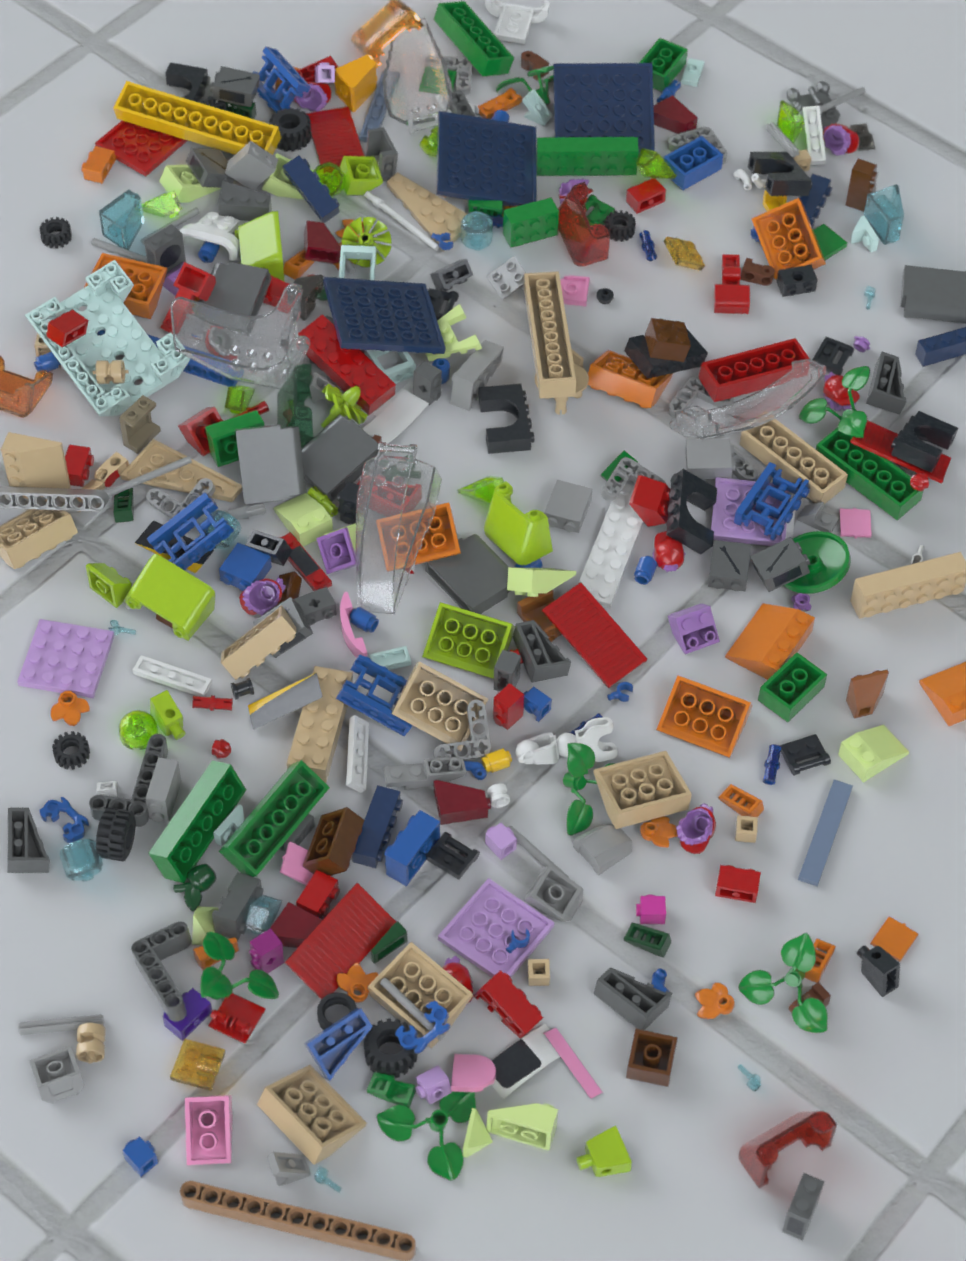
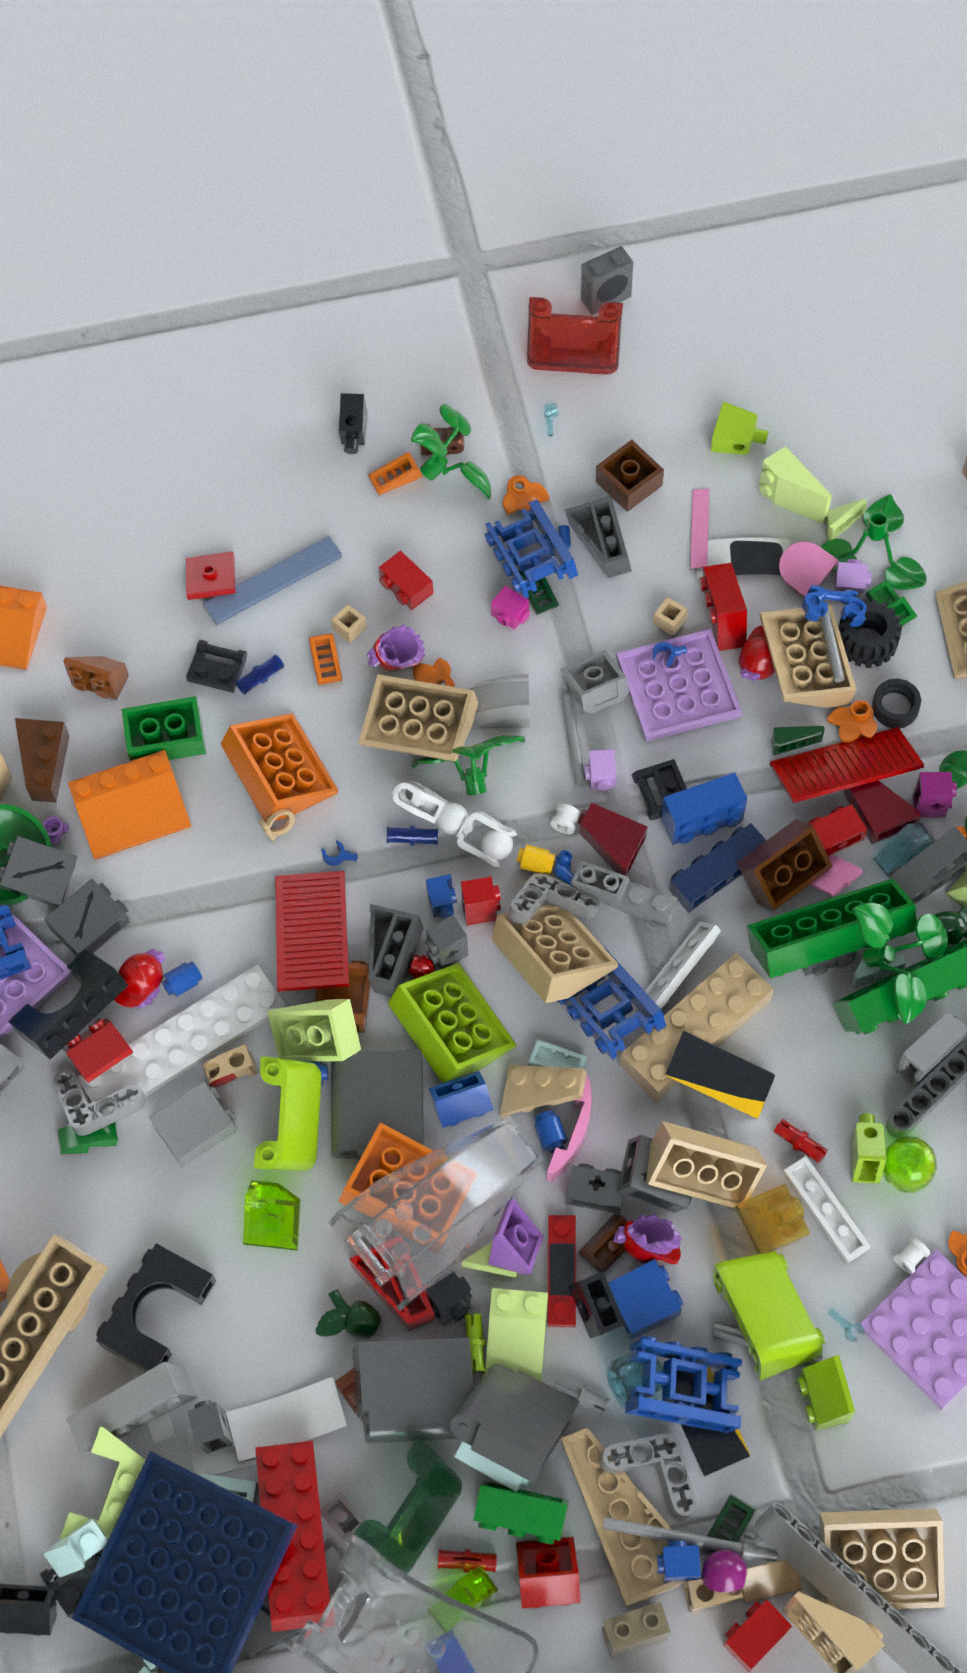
camera: 140 degrees left, 10 degrees up
(105, 681) = (911, 1255): none -> white bush
(110, 472) = (724, 1571): none -> magenta hair
(136, 463) = (679, 1562): none -> blue brick
(200, 651) = (773, 1219): none -> clear yellow plate
(221, 748) = (827, 1073): red plate -> none
(241, 801) = (874, 926): none -> green plant
(242, 688) = (754, 1135): black bush -> none
(338, 1041) = (920, 659): blue wedge -> none
(344, 404) = (346, 1466): lime piece -> none
(387, 635) = (539, 1086): none -> tan wing
(427, 601) = (461, 1099): none -> blue brick
(443, 365) = (179, 1450): blue brick -> none
(448, 304) = (75, 1548): none -> light aqua slope
(573, 545) = (230, 1066): none -> tan leg
(661, 960) = (523, 534): none -> blue fence
(671, 680) = (272, 834): none -> tan piece
(694, 628) = (195, 872): medium lavender slope -> none
(850, 631) = (43, 756): none -> reddish brown wedge
(866, 805) = (210, 575): none -> plate
(871, 751) = (149, 622): yellowish green slope -> none
(894, 938) = (307, 451): orange piece -> none

